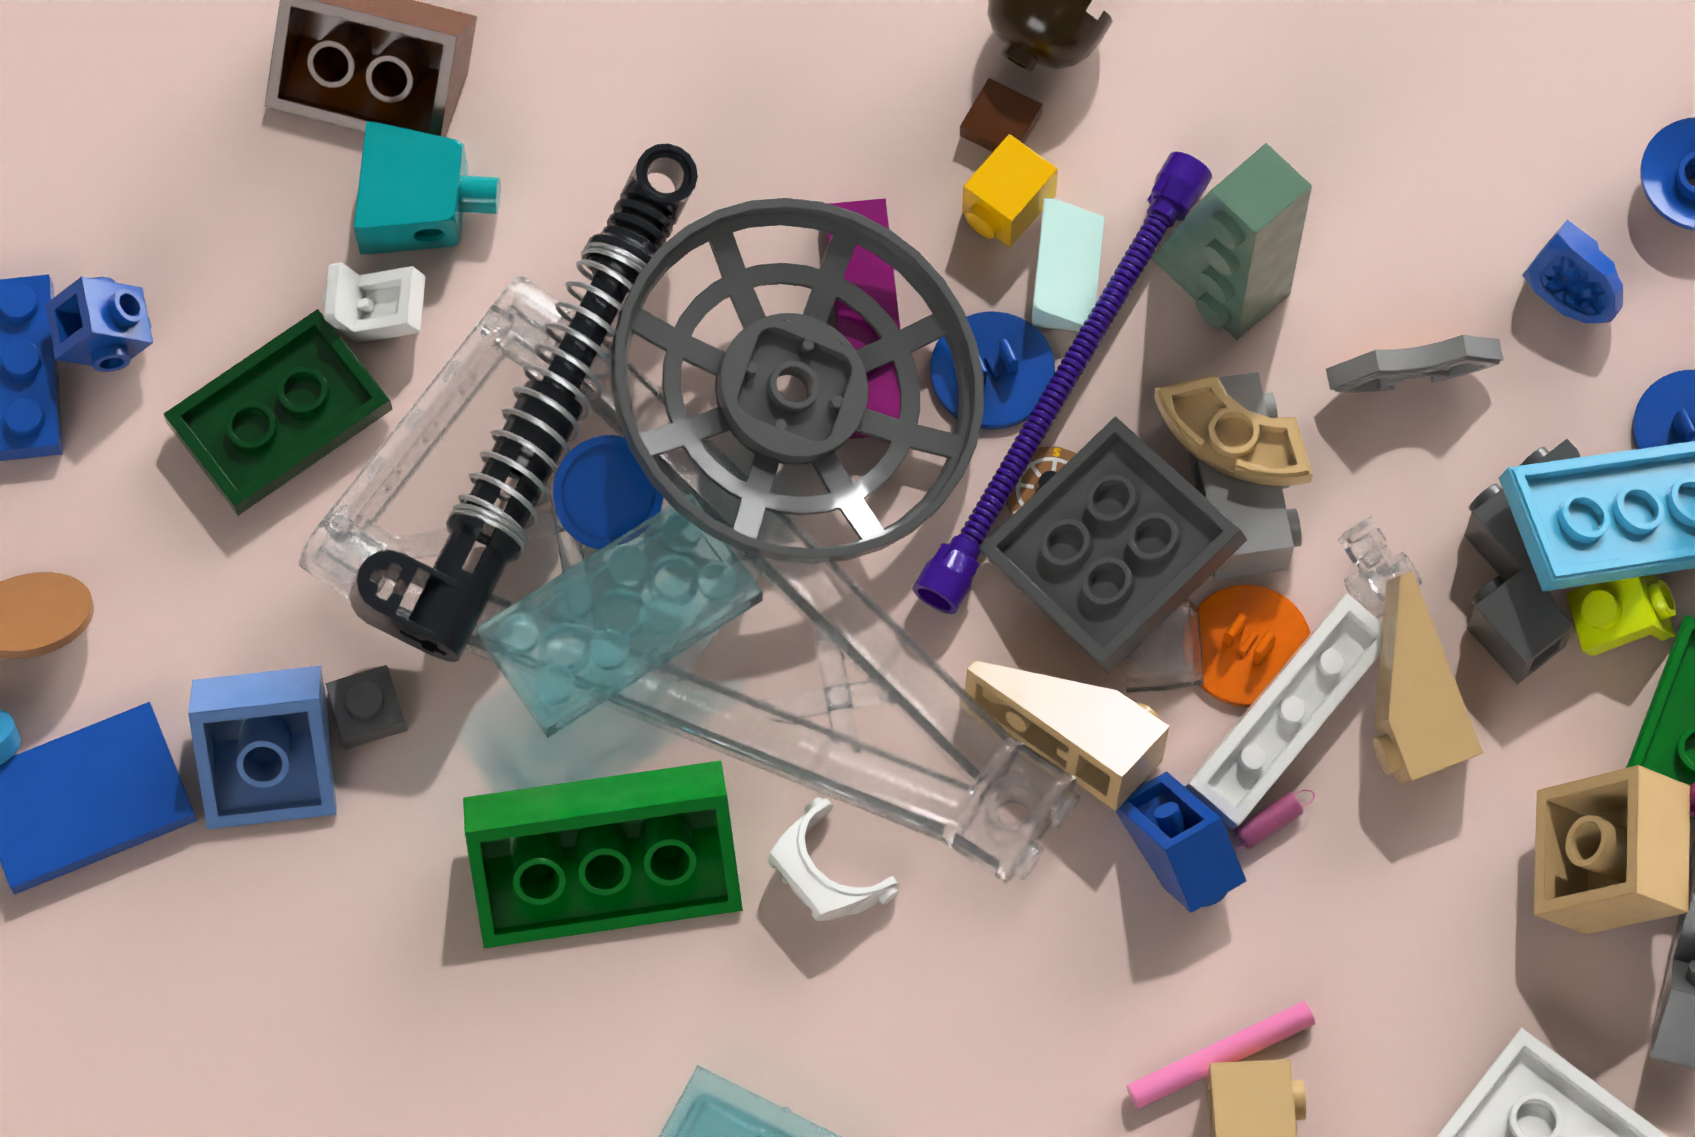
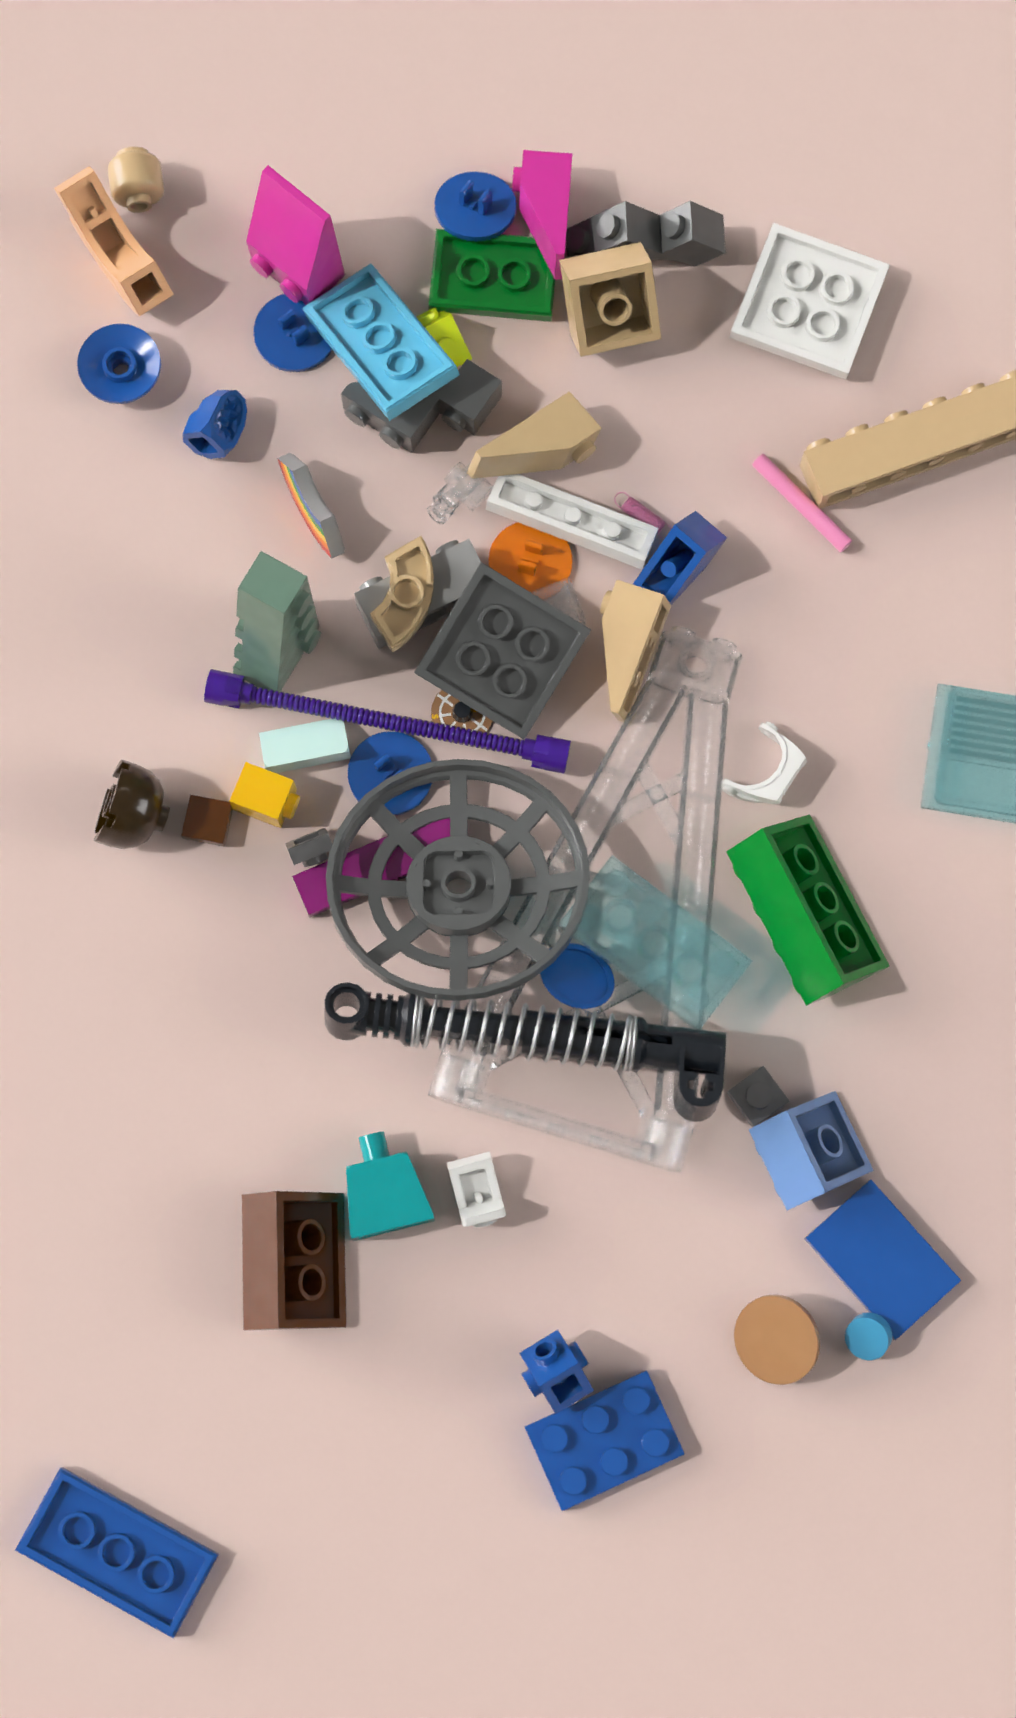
camera: 110 degrees left, 10 degrees up
(277, 412) = (575, 1228): dark green plate -> none
(917, 223) = (310, 848): none -> flat silver plate

